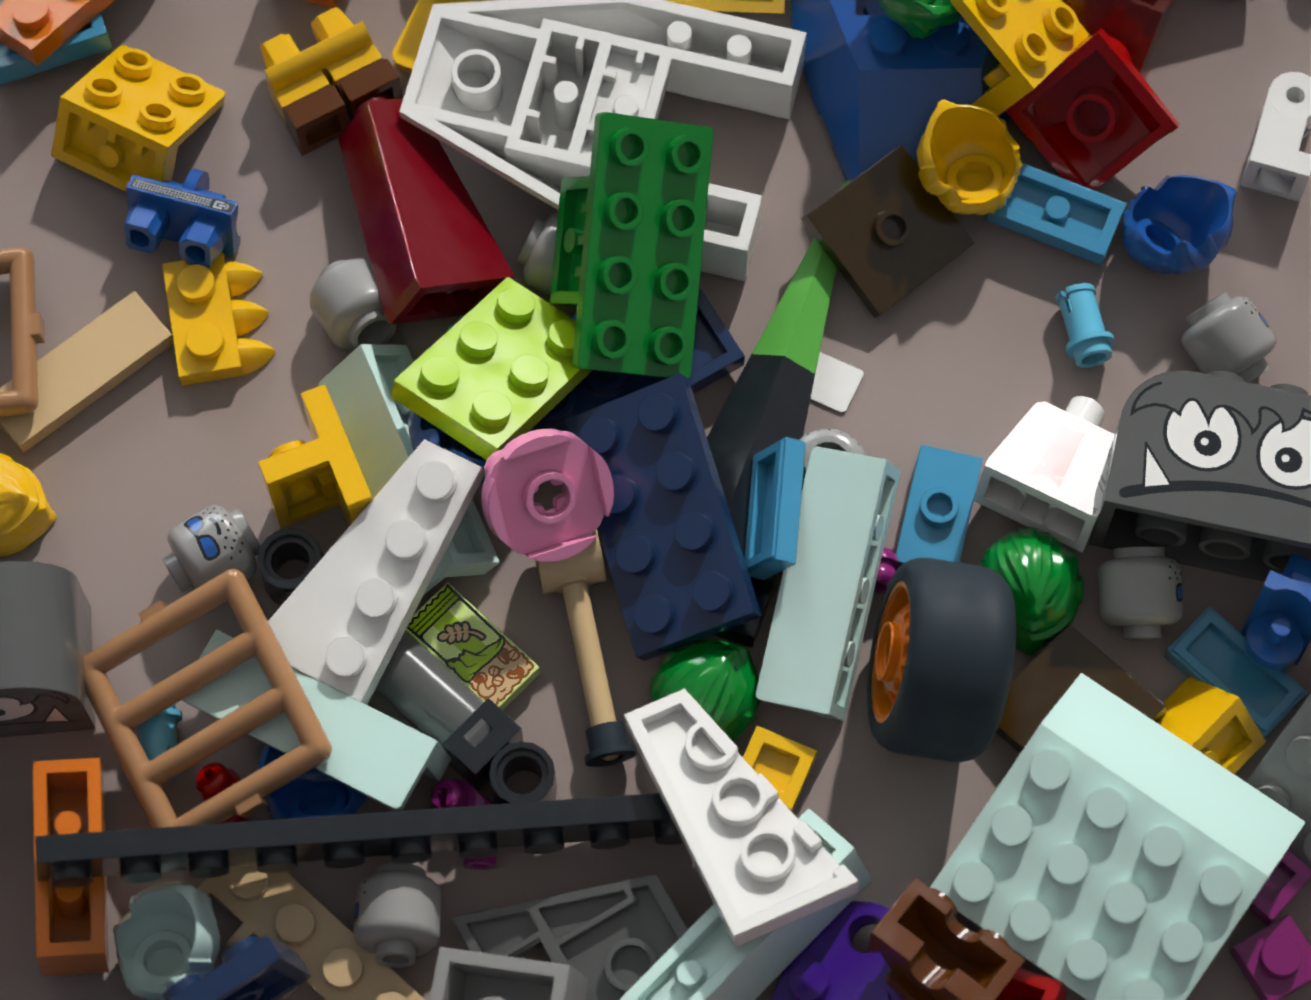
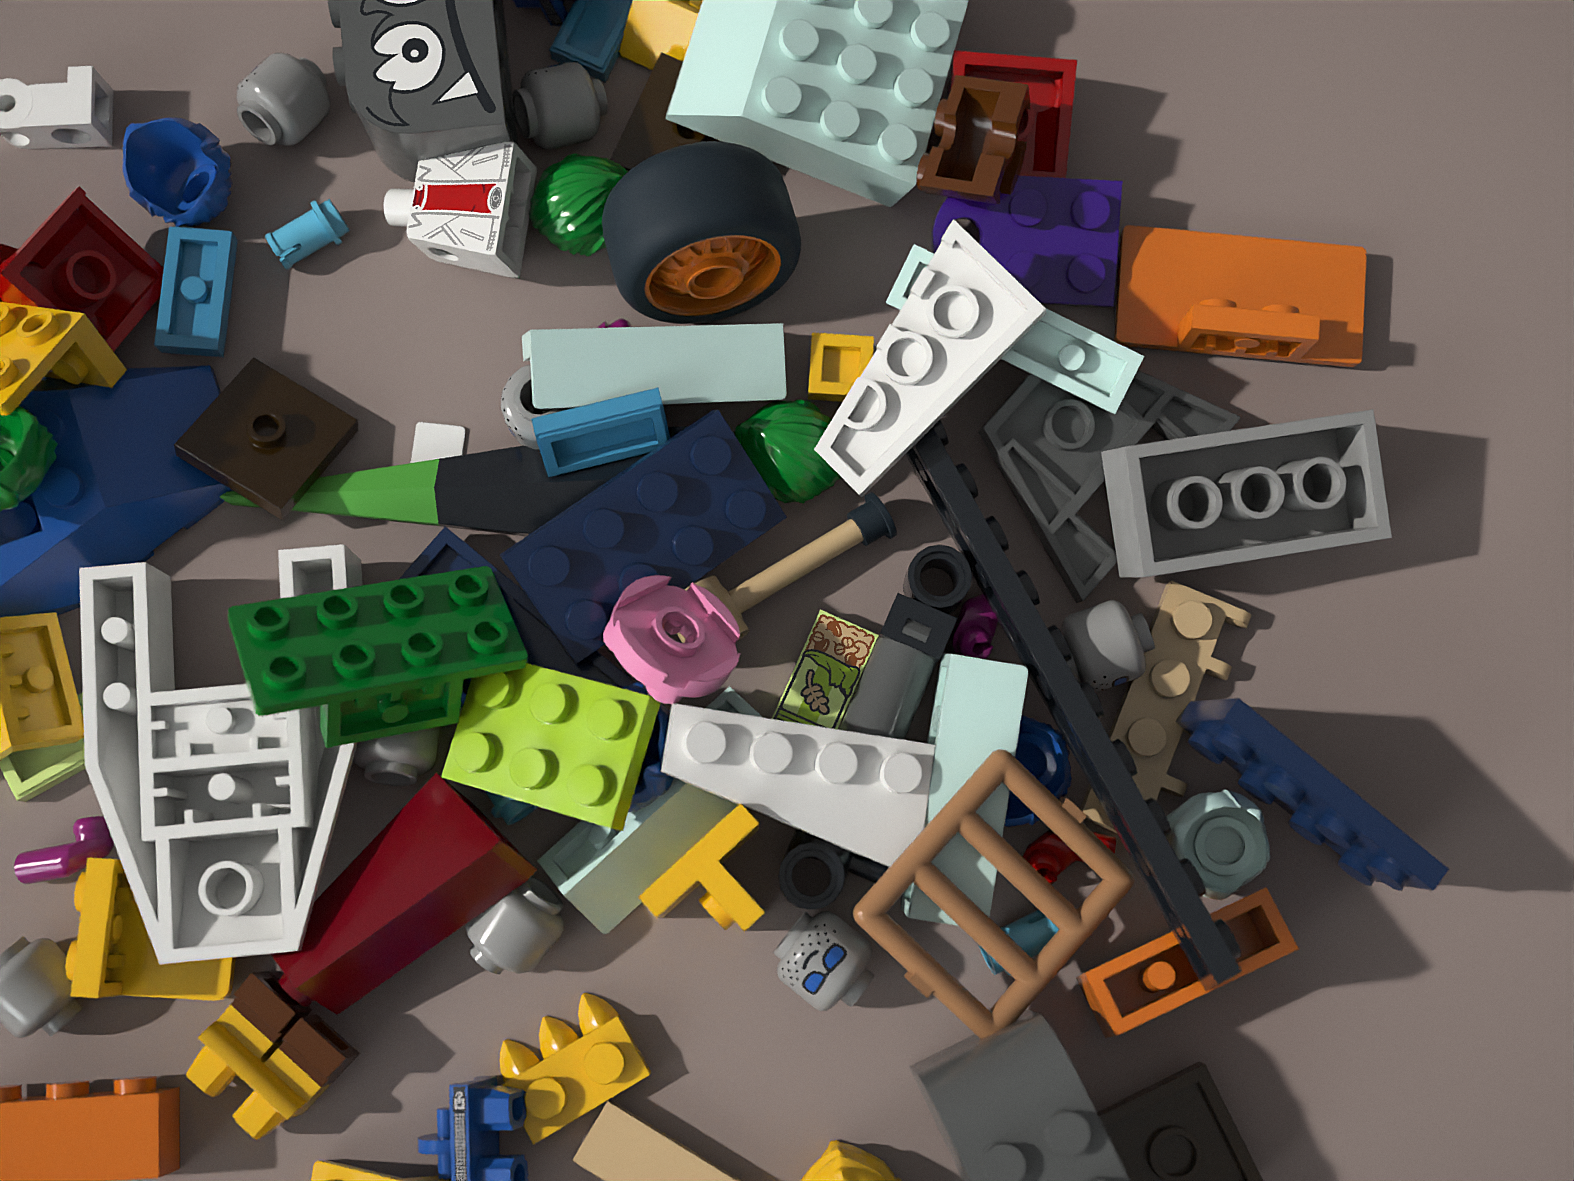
camera: 115 degrees left, 10 degrees up
(938, 505) = (522, 304): dark azure plate -> none
(968, 158) = (173, 372): yellow hair -> none

